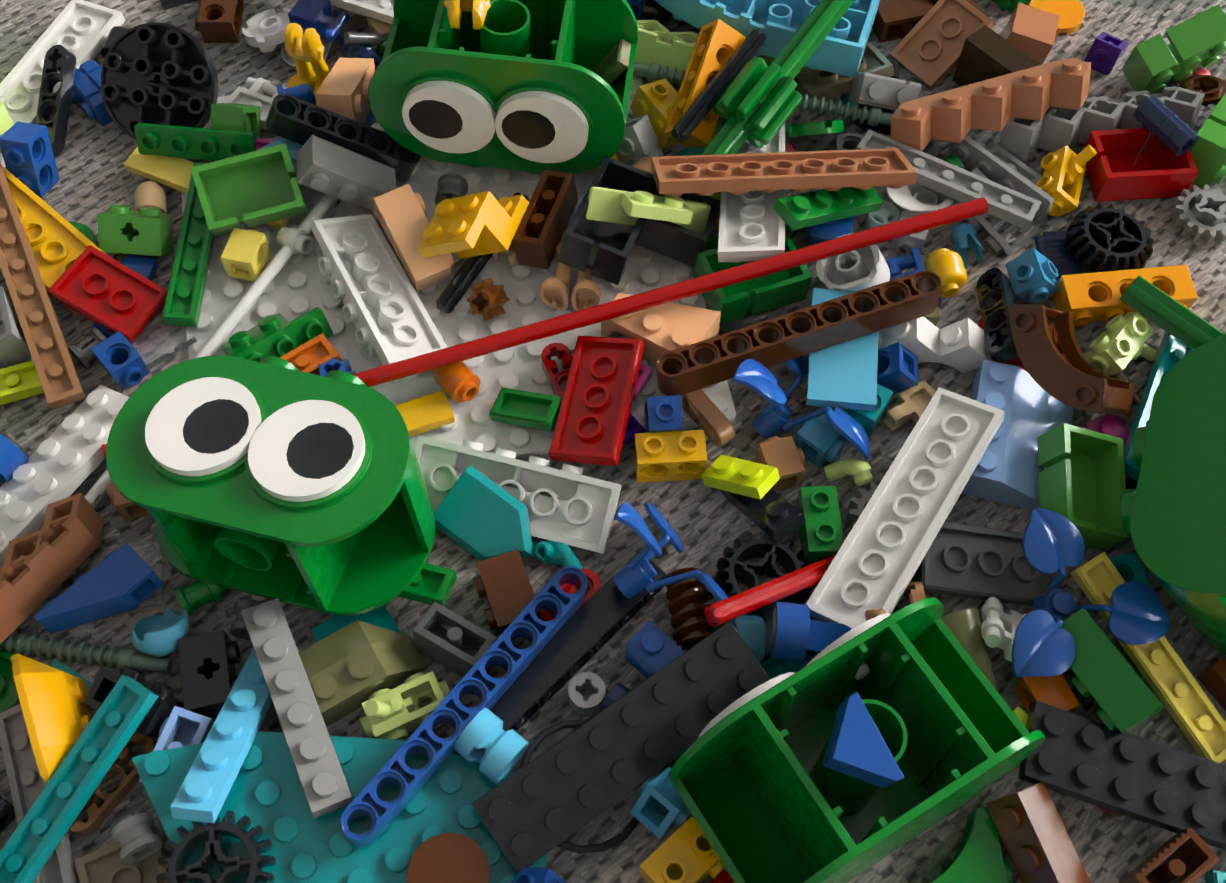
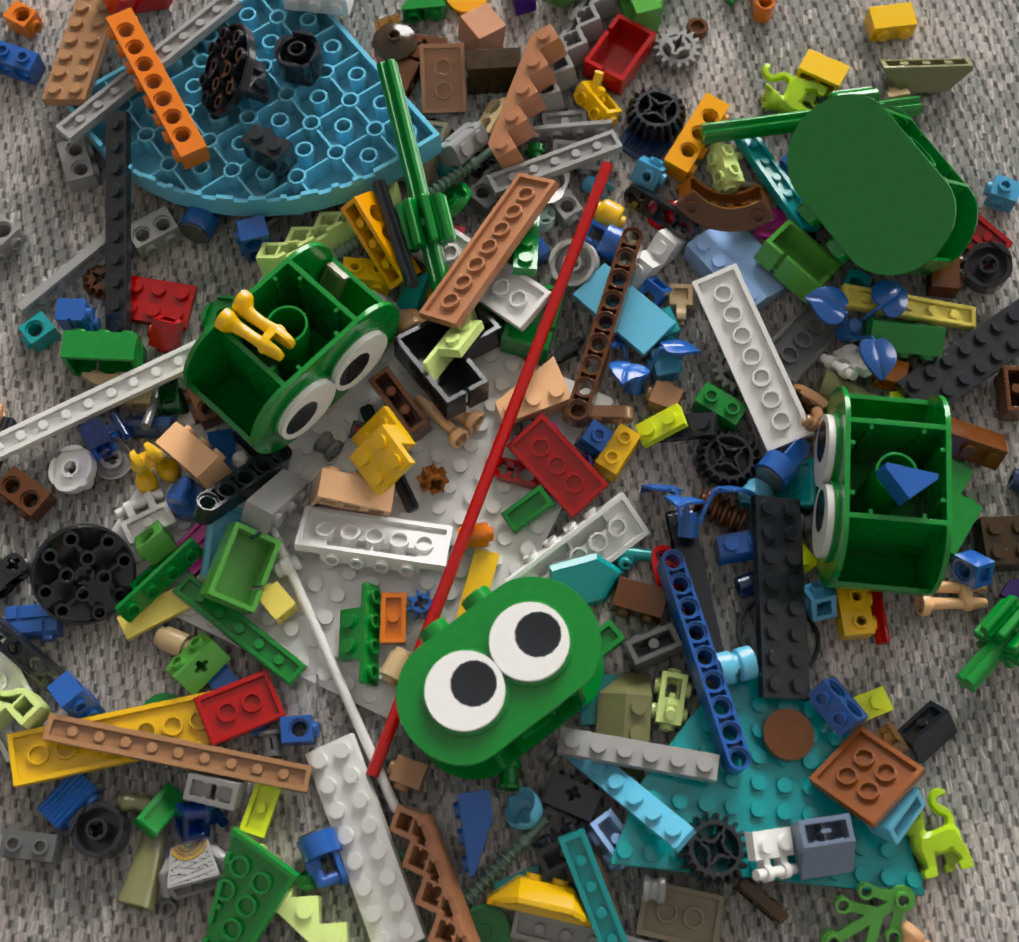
camera: 55 degrees left, 10 degrees up
(587, 703) = (725, 603): light grey wheel -> none
(766, 593) = (752, 461): red axle -> none
(849, 467) = (696, 363): yellowish green arm -> none
(1165, 125) = (617, 22): dark blue axle -> none

